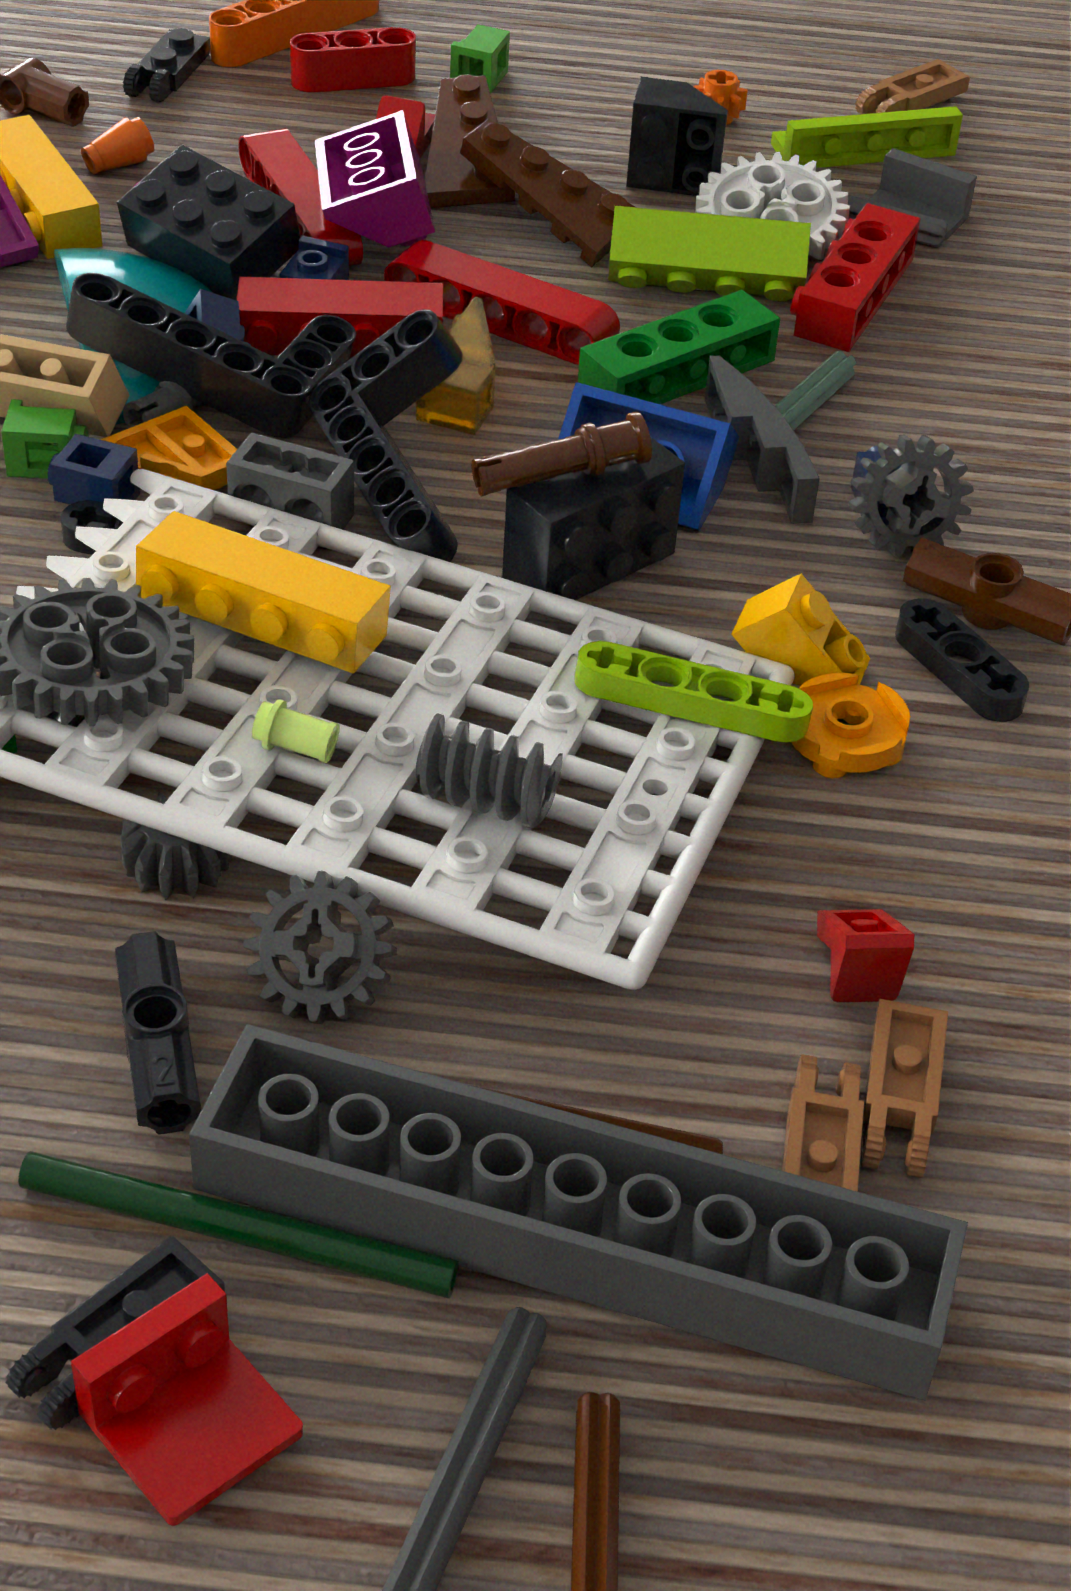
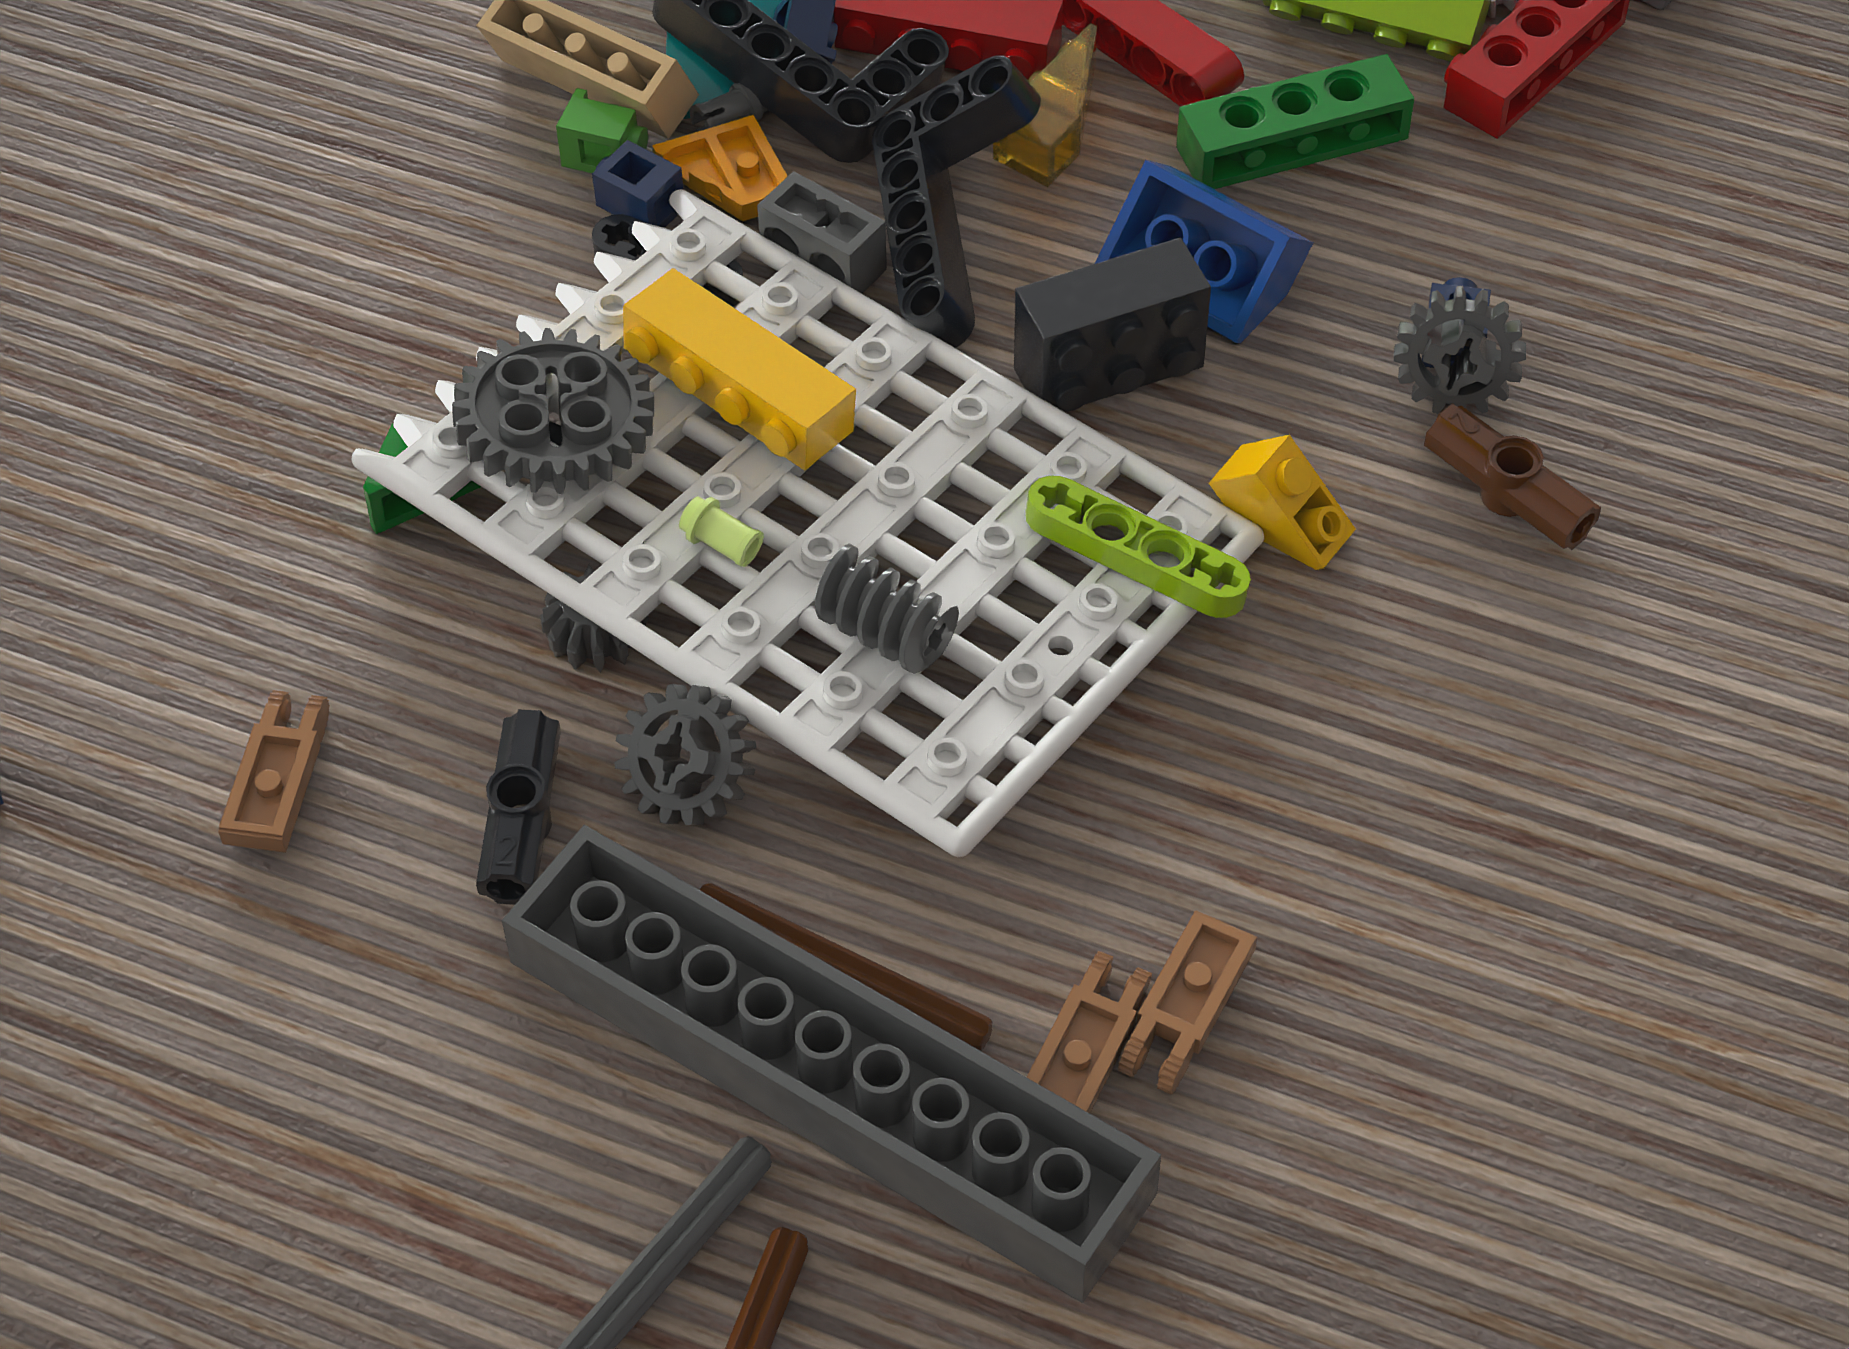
camera: 20 degrees right, 10 degrees up
(115, 1305) = (406, 1079): black hinge -> none
(182, 1402) = (439, 1156): red bracket -> none
(239, 1224) = (540, 1006): dark green piece -> none
(586, 451) = (1105, 262): reddish brown pin -> none
(765, 439) = (1341, 242): dark grey slope -> none
(816, 388) = (1421, 194): sand green axle -> none
(866, 953) = (1200, 857): red slope -> none
(876, 730) = (1301, 633): light orange plate -> none
(988, 685) = (1448, 572): black beam -> none

